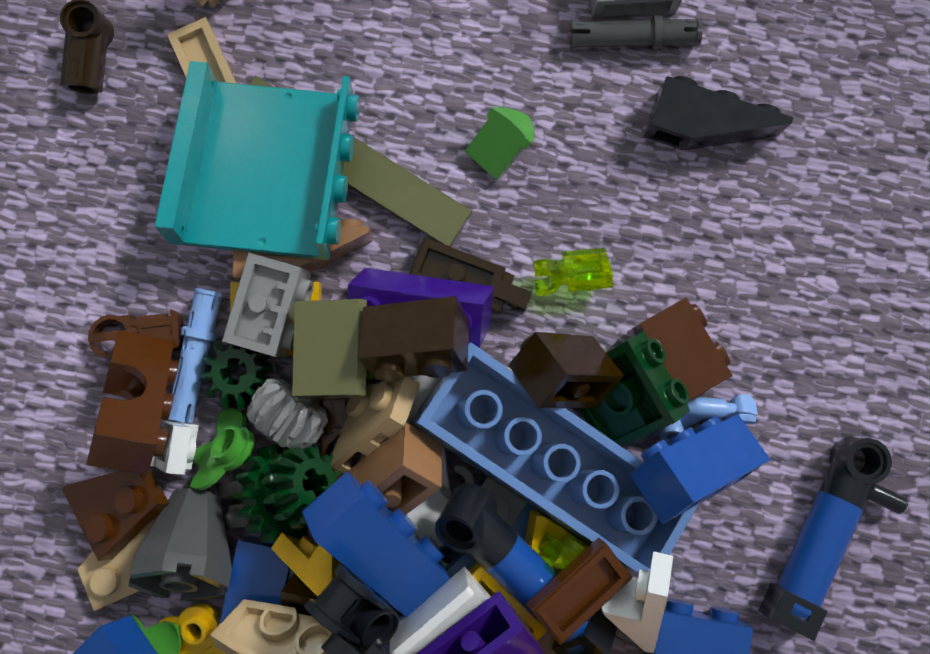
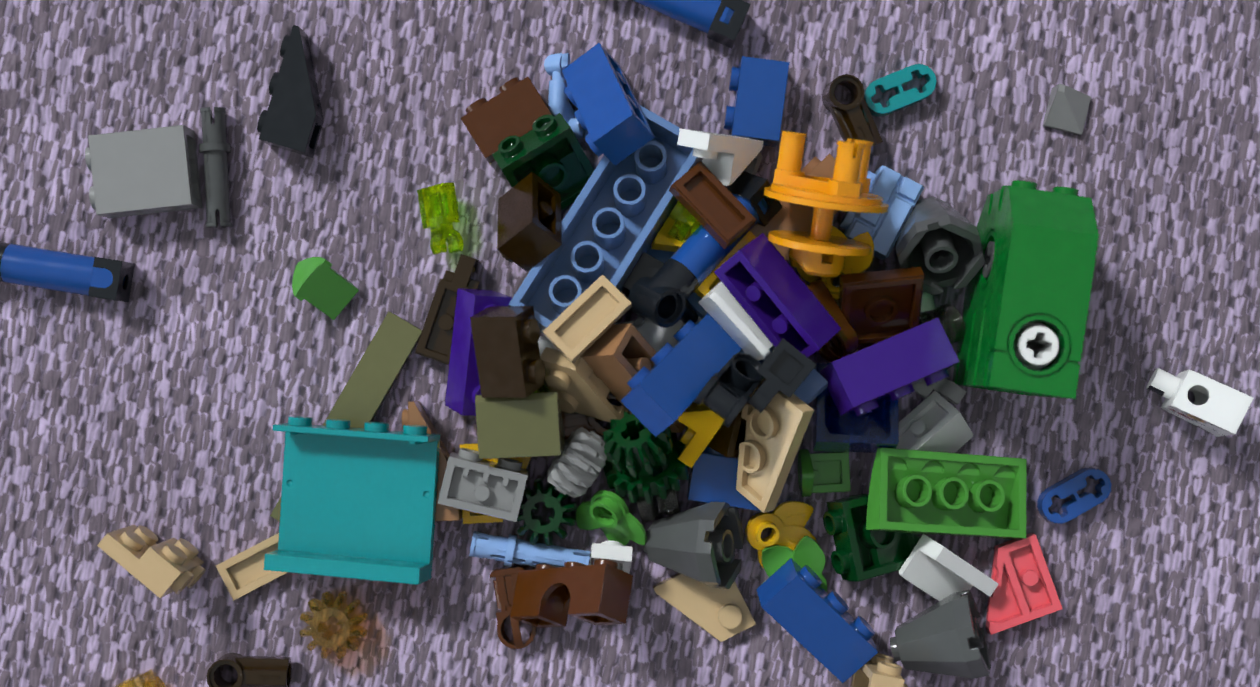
camera: 95 degrees left, 5 degrees up
(115, 508) = (665, 609): reddish brown wing -> none
(120, 126) = (323, 611): none -> clear yellow gear
(448, 435) = (587, 319): none -> tan tile

